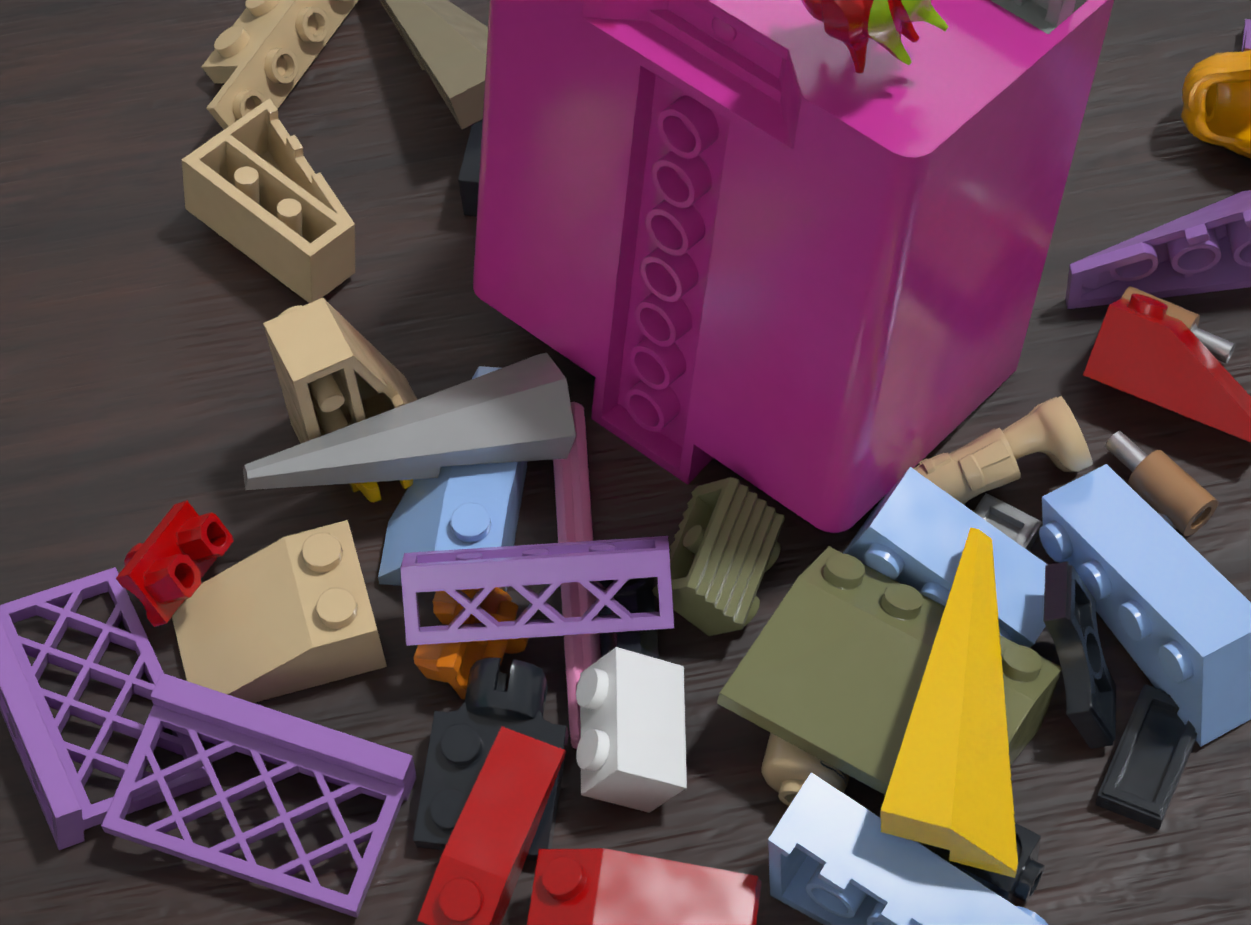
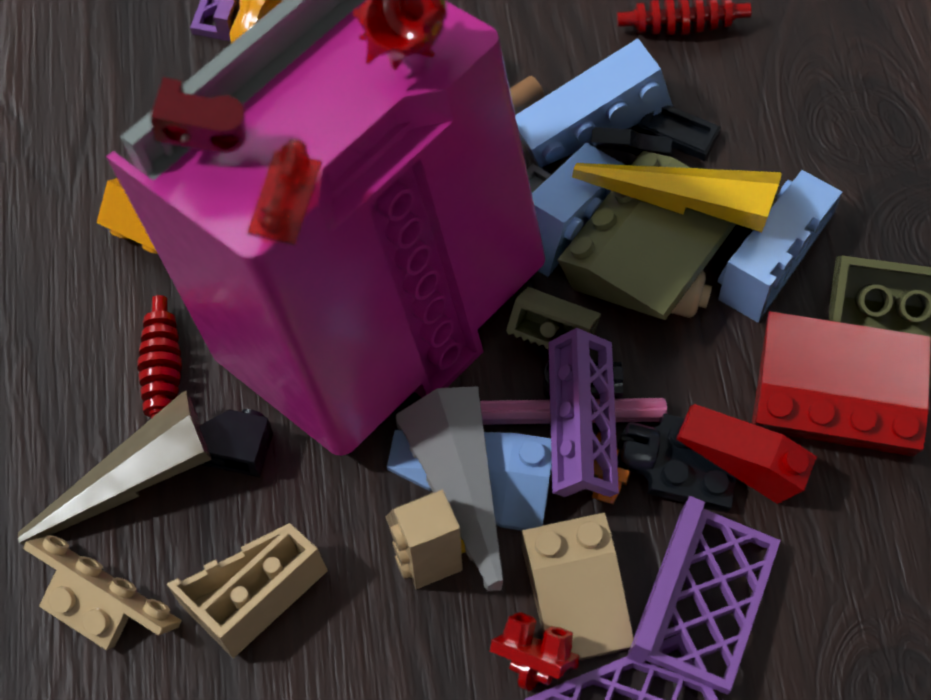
camera: 90 degrees left, 5 degrees up
(632, 730) = (669, 376): white brick -> none

